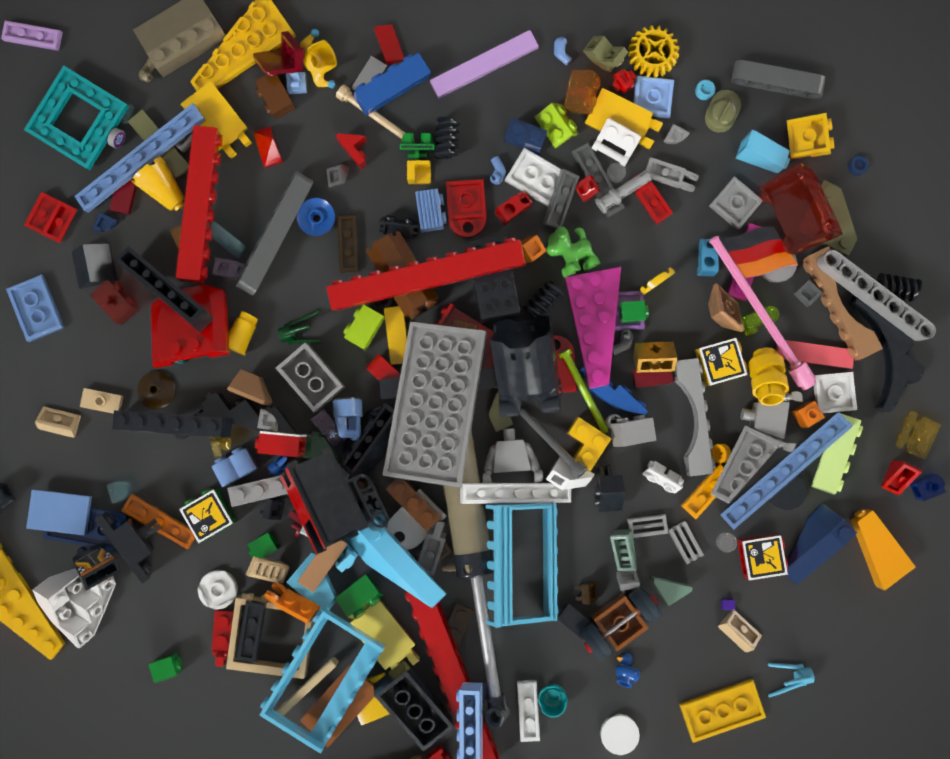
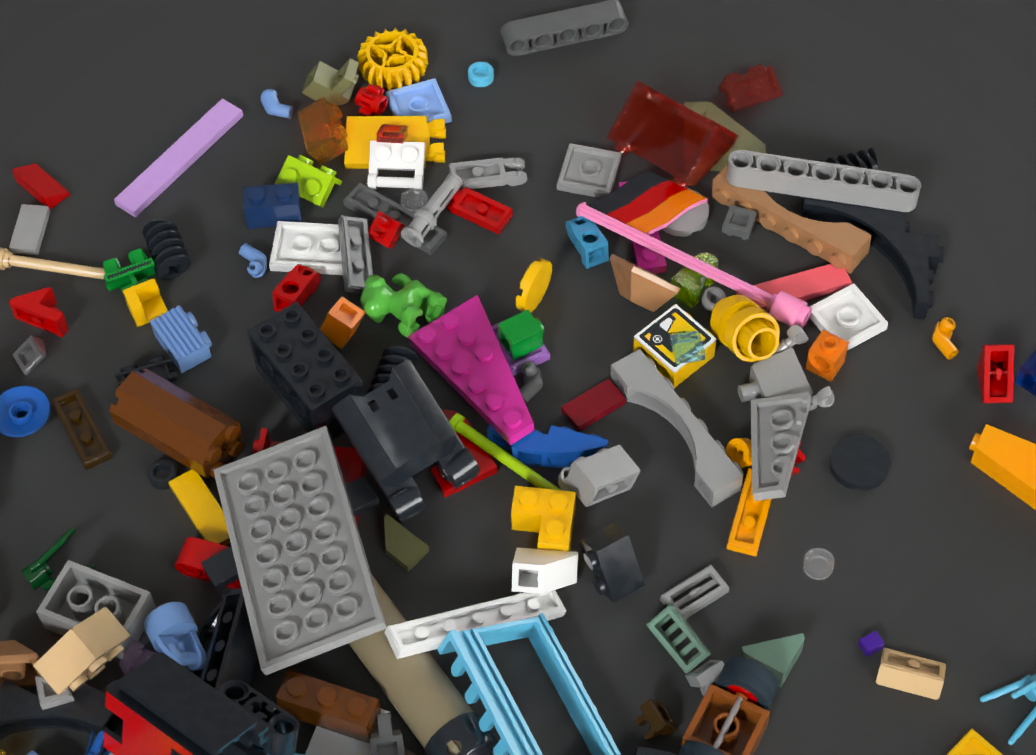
camera: 20 degrees left, 30 degrees down
(281, 443) = (79, 699): red piece -> none
(290, 412) = (82, 651): none -> tan brick
(363, 327) = (149, 513): lime brick -> none
(391, 84) = (62, 218): blue brick -> none
(426, 275) = (206, 389): red brick -> none
(466, 205) = (227, 315): red tile -> none
(511, 456) = (449, 584): light grey torso -> none
(578, 469) = (549, 546): dark grey piece -> none
(624, 119) = (392, 133): none -> clear red tile
(655, 357) = (581, 375): pearl gold brick -> none
(655, 473) = (674, 521): white hinge -> none
(676, 135) = (471, 132): light grey tile -> none
(693, 557) = (765, 580): light grey tile -> none
(723, 111) = (515, 87): olive piece -> none
(726, 374) = (687, 347): none -> clear light blue tile
(762, 556) = (877, 554): piece -> none
(763, 152) = (587, 101): medium azure slope -> none
(764, 341) = (715, 292): none -> light grey hinge
(786, 470) = (838, 432): medium blue plate -> none
(810, 136) = (638, 61): yellow plate -> none
(820, 539) = (942, 497): dark blue wedge -> none
(835, 458) = (894, 383): yellowish green brick -> none
(858, 165) = (715, 72): dark blue tile -> none
(872, 190) = (750, 88): none -> clear red bracket
(883, 432) = (942, 336): none -> light orange arm
(922, 437) = (994, 317): clear yellow plate -> none

